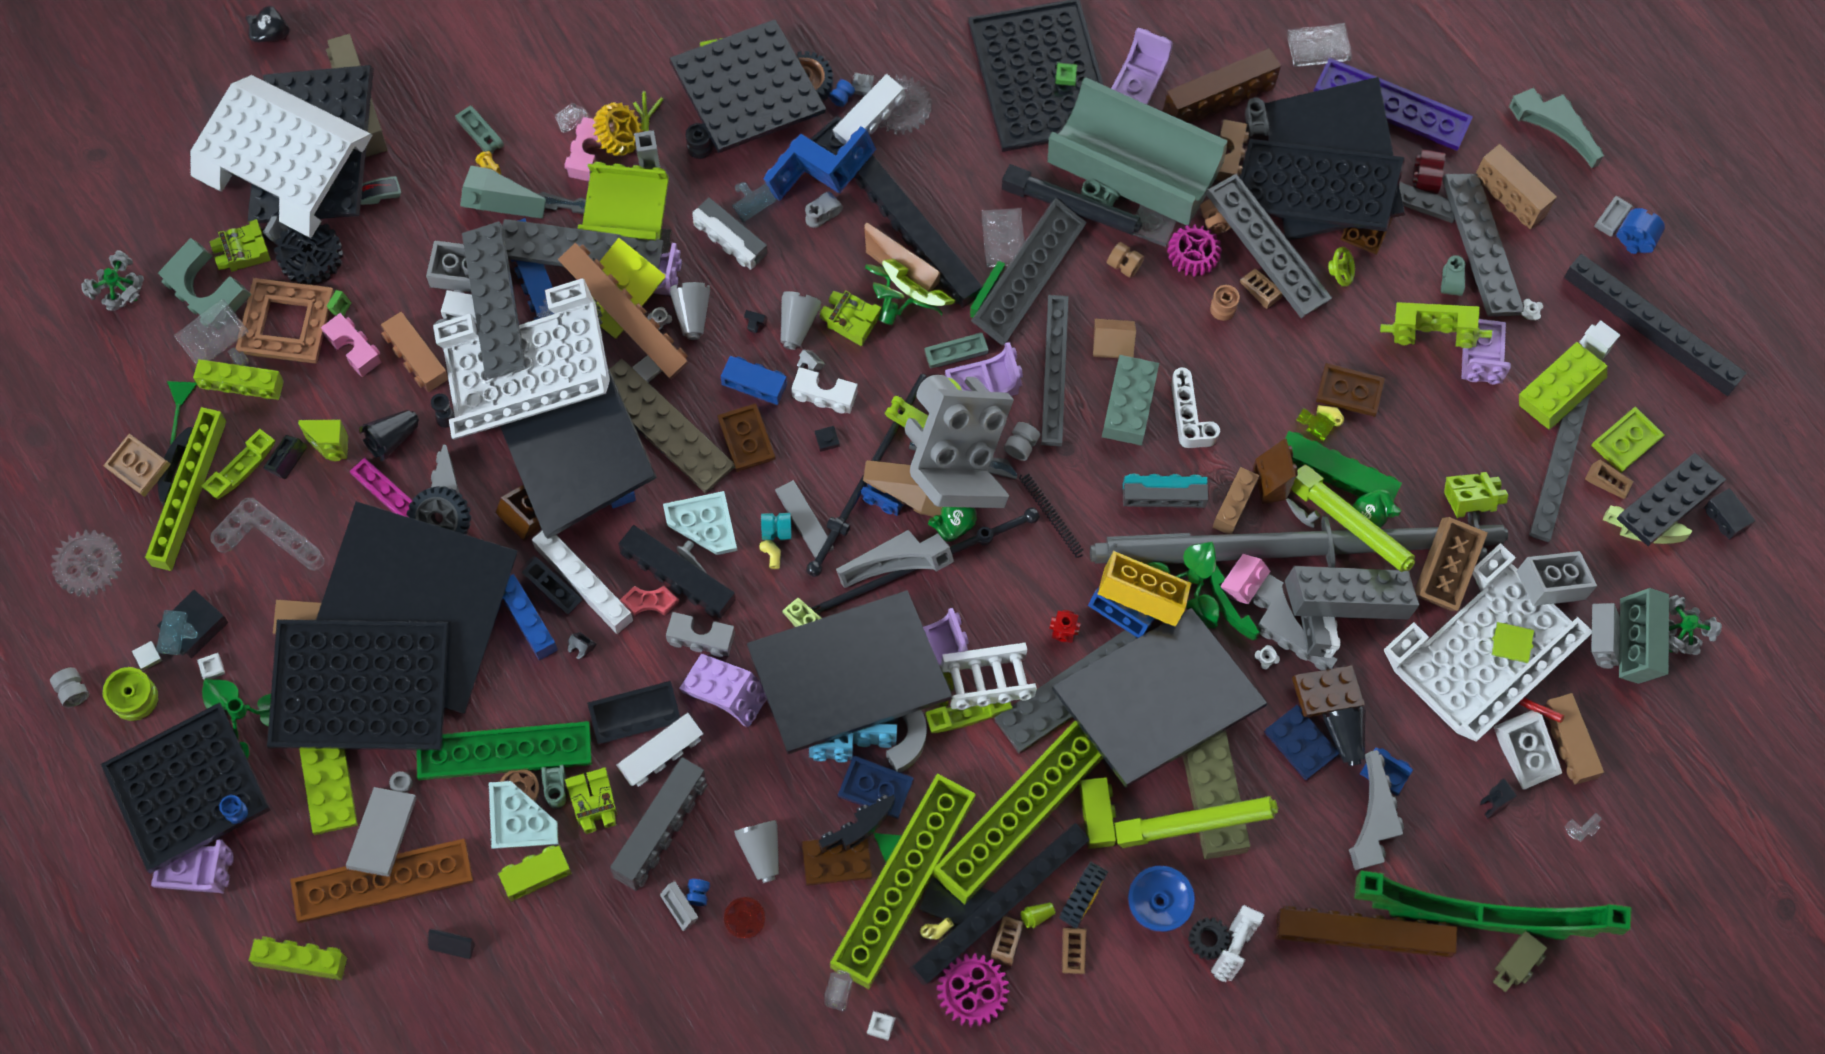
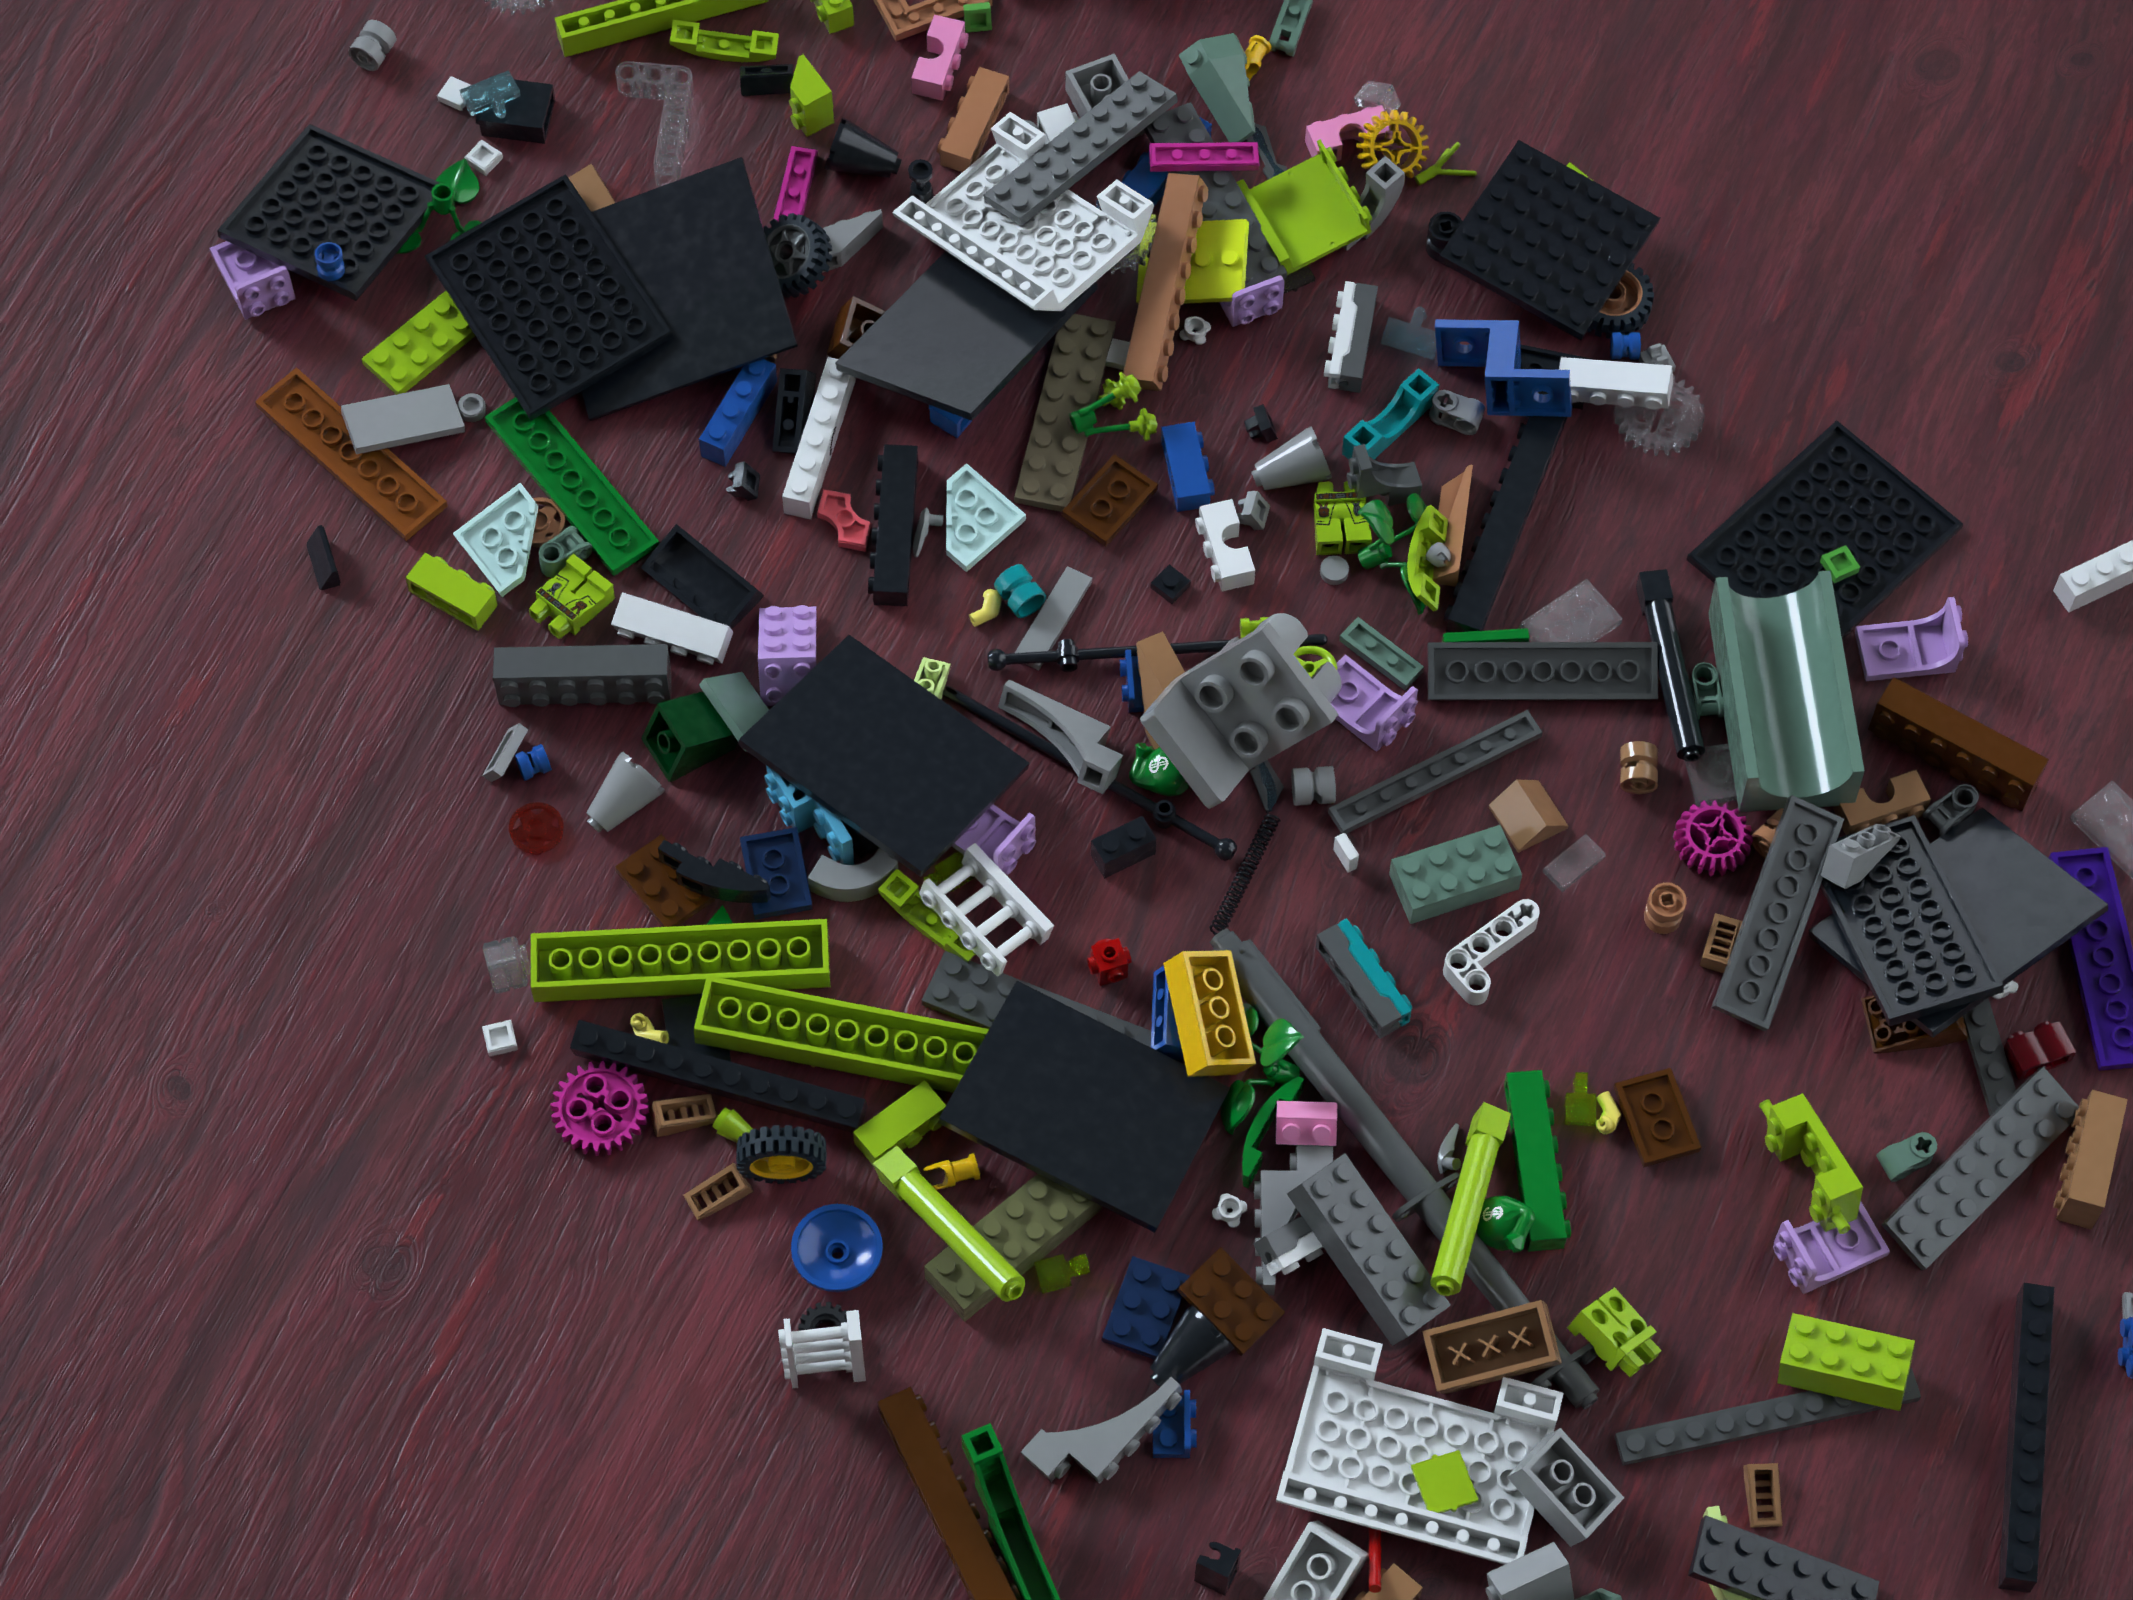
camera: 60 degrees right, 5 degrees down
(130, 694) = (400, 101): lime wheel -> none
(298, 959) = (214, 426): lime brick -> none
(551, 235) = (1204, 156): none -> dark pink tile
(684, 417) = (1115, 394): none -> plant
(691, 307) = (1226, 350): light grey cone -> none
(716, 641) = (842, 611): light grey arch -> none
(743, 781) = (686, 735): none -> dark green slope
(750, 740) = (735, 701): none -> sand green tile
(803, 247) = (1406, 407): none -> teal arch
(845, 275) = (1383, 479): none -> dark grey arch
(880, 342) = (1334, 570): none -> light grey tile
(918, 277) = (1438, 554): none -> light grey hinge
(992, 572) = (1123, 847): none -> black brick
(1076, 450) = (1346, 852): none -> white tile
(1148, 799) = (956, 1171): none -> yellow piece
(1160, 333) = (1574, 862): none -> clear tile
(1235, 501) = (1406, 1063): medium nougat brick -> none
(1247, 779) = (1056, 1273): none -> clear neon green plate
(1262, 180) = (1858, 854): none -> light grey slope
(1275, 472) = (1470, 1085): reddish brown slope -> none
(1340, 267) = (1818, 1015): lime piece -> none
(1529, 314) = (1930, 1283): white plate -> none
(1599, 339) = (1942, 1375): white brick -> none
(1627, 440) = (1838, 1490): lime tile -> none

